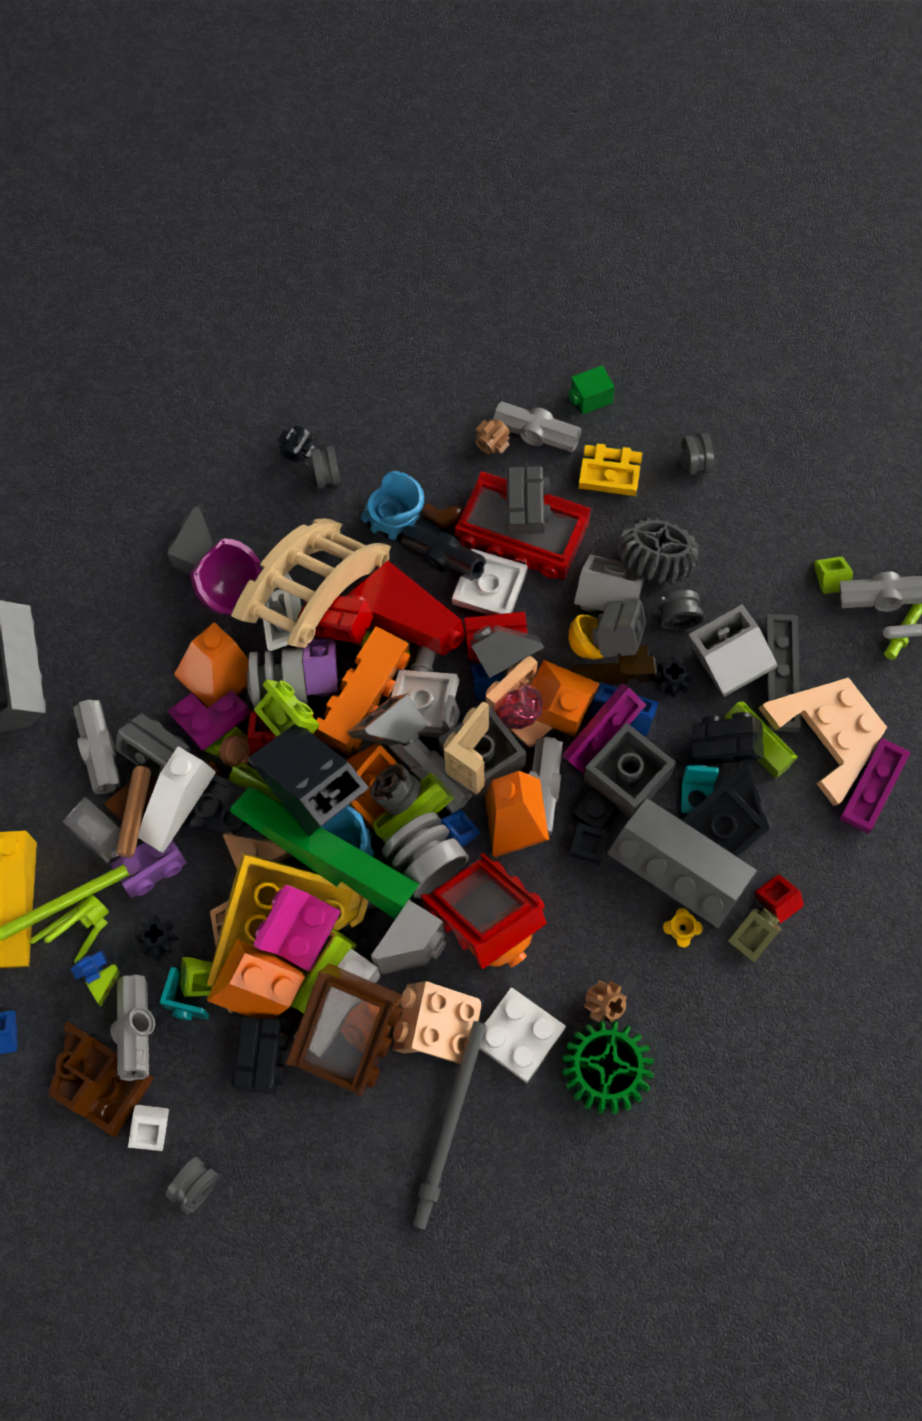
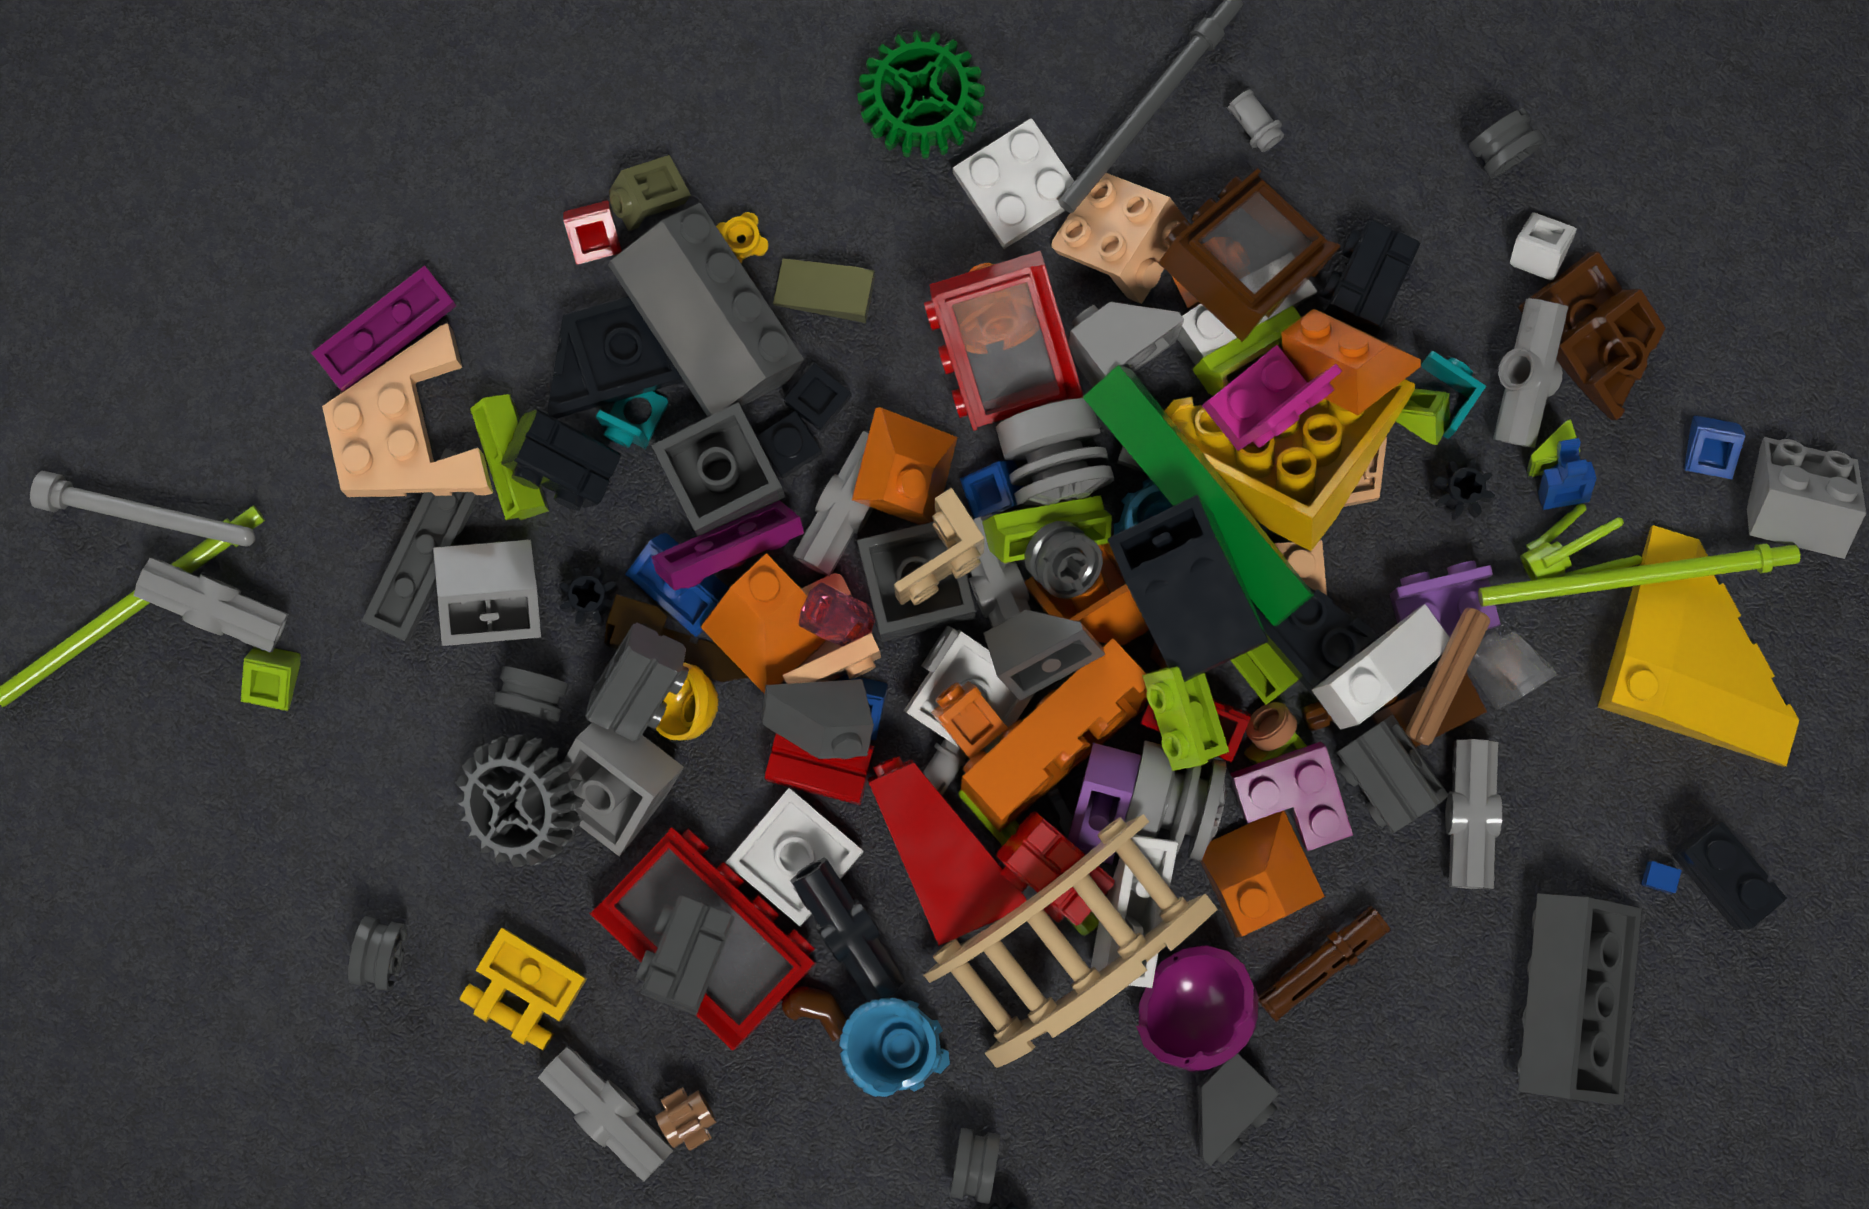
camera: 160 degrees left, 15 degrees up
(157, 644) = (1330, 958): none -> reddish brown pin
(373, 1139) = (1256, 121): none -> light grey pin
(418, 679) = (968, 718): none -> orange bracket
(591, 390) = (489, 1147): green brick -> none
(605, 1001) = (888, 174): medium nougat gear -> none
(614, 915) = (825, 289): none -> olive slope

